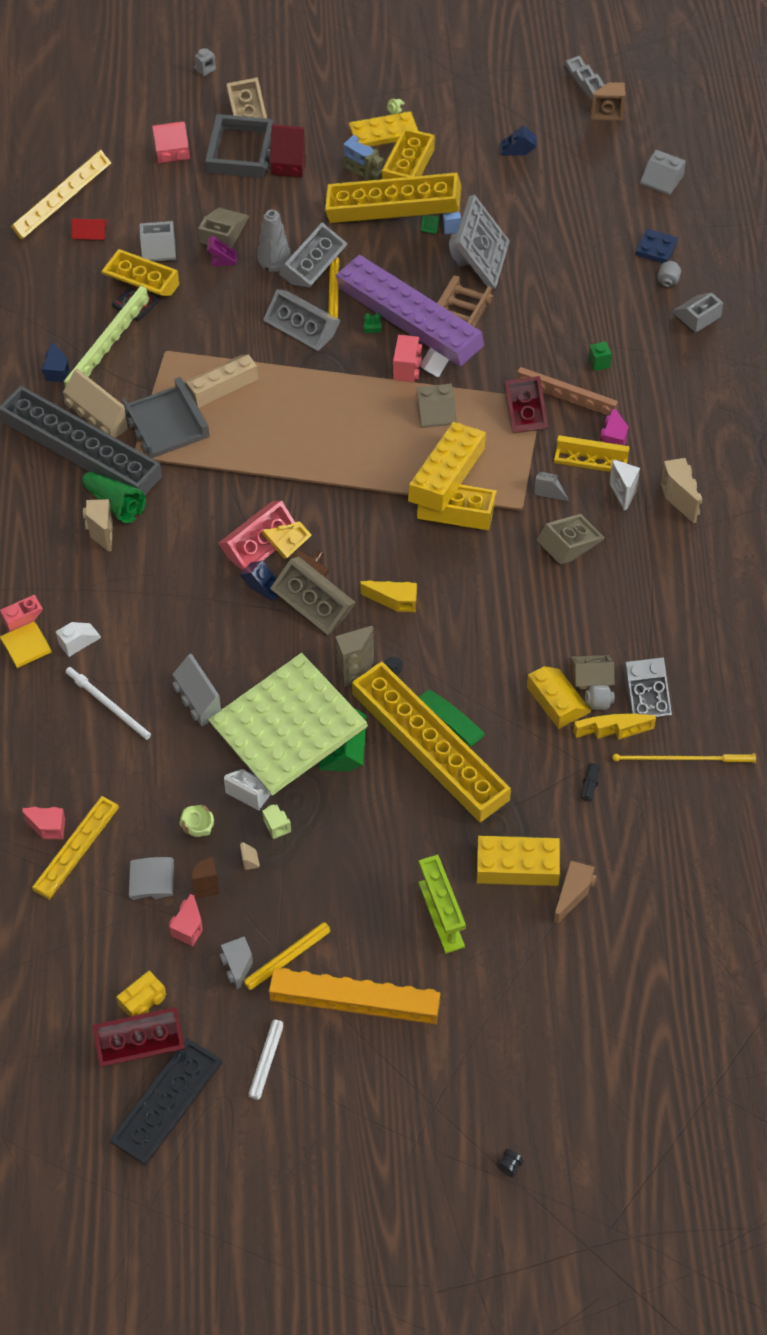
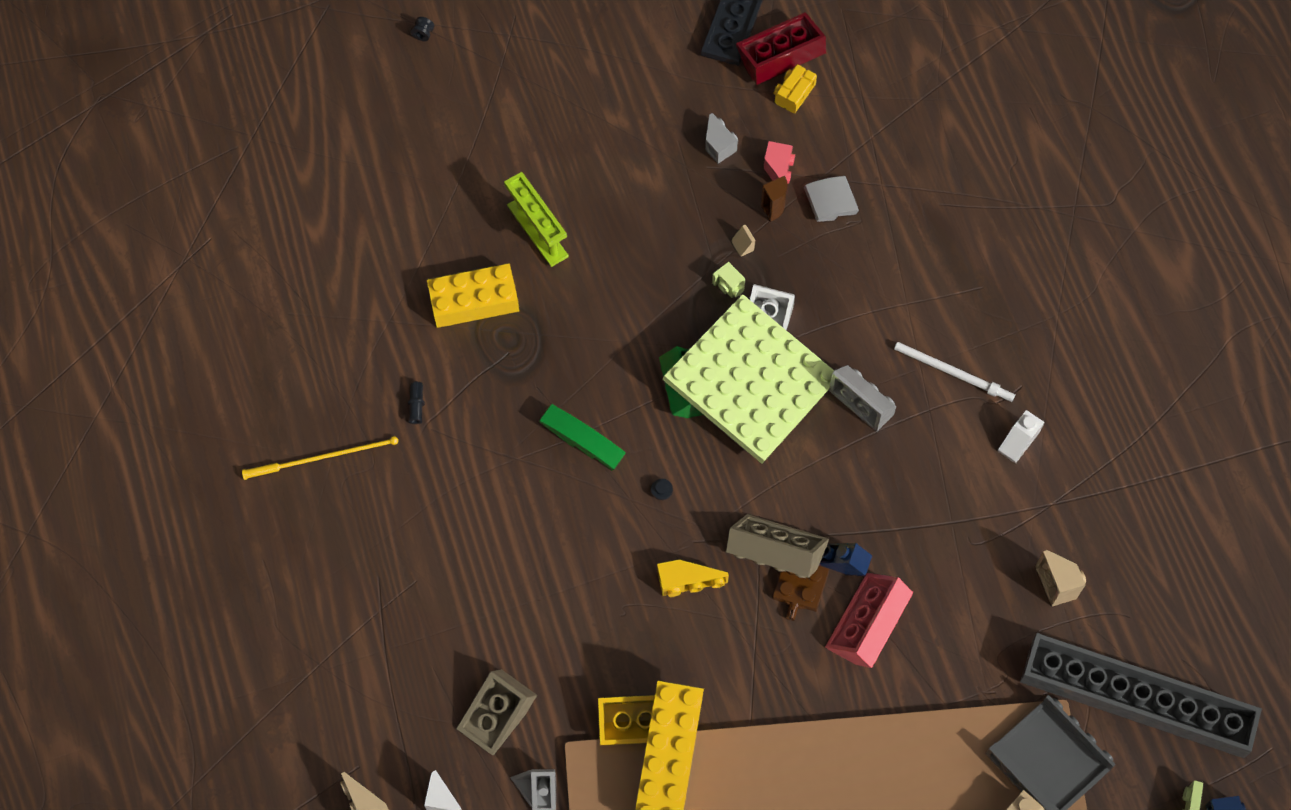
camera: 165 degrees right, 10 degrees up
(21, 613) = (1095, 442): coral slope -> none
(25, 644) = (1073, 415): yellow slope -> none
(46, 822) = (958, 225): coral slope -> none
(75, 847) = (918, 215): yellow tile -> none
(95, 404) = (1146, 757): tan slope -> none
(123, 499) = (1057, 622): green cone -> none
(197, 820) = (807, 258): yellowish green hair -> none
(266, 1059) = (662, 77): white axle -> none
(287, 537) = (834, 622): yellow wing -> none
(287, 955) = (673, 159): yellow axle -> none
(354, 654) = (705, 464): dark tan slope -> none
(354, 996) = (598, 133): light orange brick -> none
(431, 741) = (596, 400): yellow brick -> none
(556, 696) = (469, 494): yellow slope -> none
(575, 888) = (410, 283): medium nougat slope -> none
(592, 671) = (437, 535): dark tan slope -> none
(599, 697) = (423, 499): light grey head -> none
(620, 724) = (393, 474): yellow slope -> none
(647, 687) = (373, 529): light grey slope -> none

